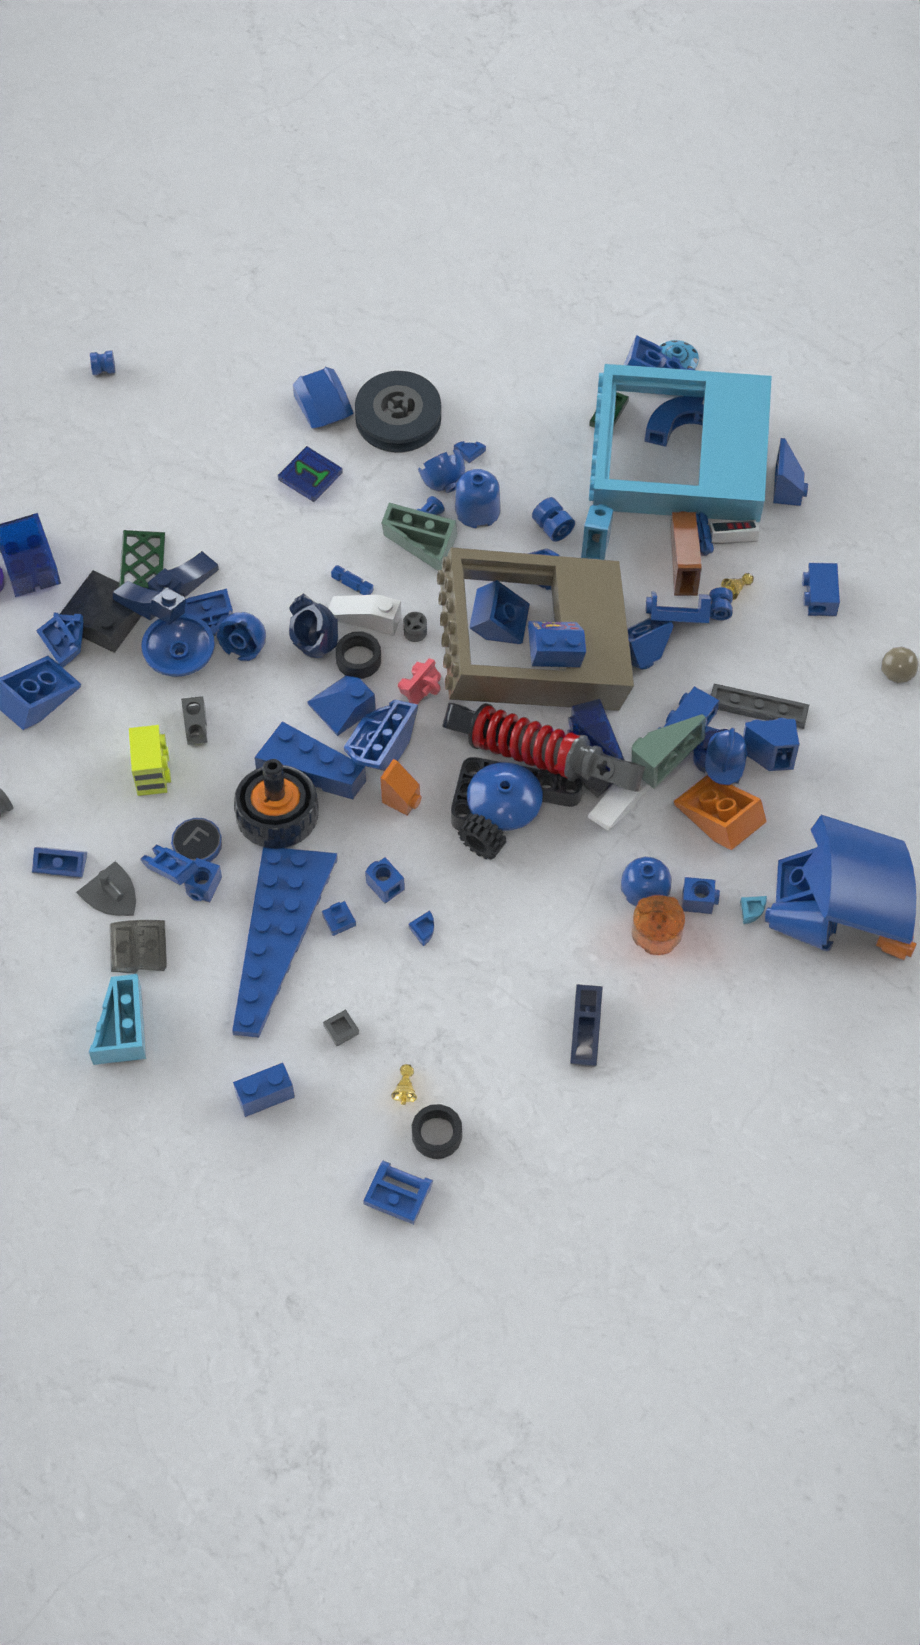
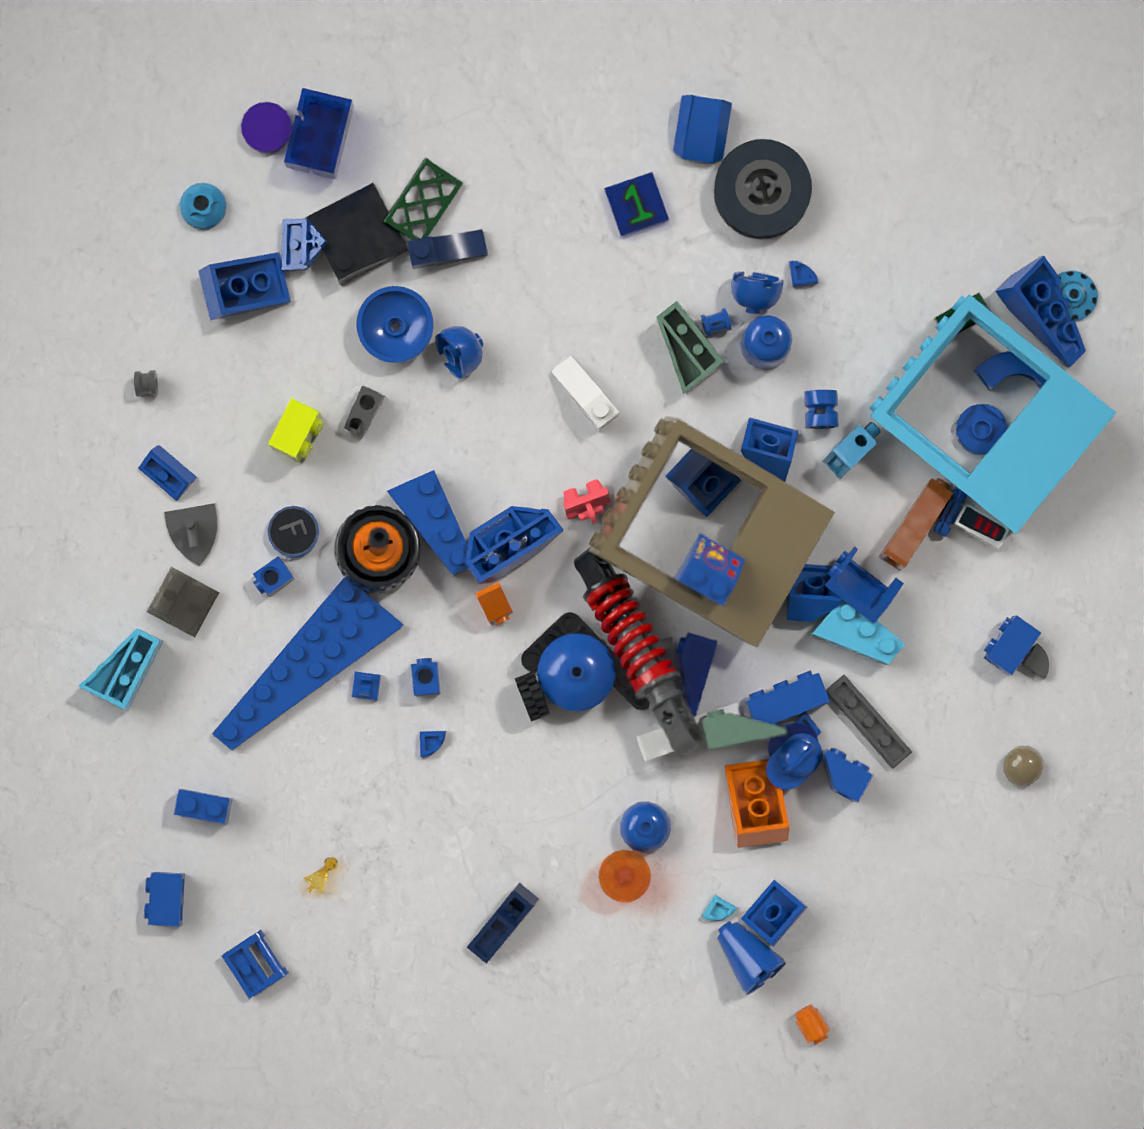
camera: 30 degrees right, 25 degrees up
(150, 603) = (395, 263): dark blue slope -> none
(170, 864) = (251, 548): blue hinge -> none
(210, 607) = (448, 297): blue slope -> none
(281, 1185) = (165, 898): none -> blue brick
(312, 627) = (525, 392): dark blue helmet -> none
(341, 1027) = (301, 790): dark grey plate -> none
(343, 703) = (504, 475): blue slope -> none
(352, 580) = (597, 350): blue axle -> none
(358, 639) = (546, 417): black tyre -> none
(414, 620) = (622, 433): dark grey wheel -> none
(437, 1111) = (299, 934): black tyre -> none
(679, 468) = (980, 428): none -> blue tile
(695, 886) = (668, 870): blue brick -> none
(703, 645) = (856, 633): none -> medium azure wedge
(721, 603) = (909, 599): blue wheel -> none
(736, 585) = (935, 588): clear yellow piece -> none
(789, 477) = (1069, 509): blue slope -> none
(850, 592) = (1037, 661): none -> dark grey tile
(862, 879) = (813, 965): blue slope -> none

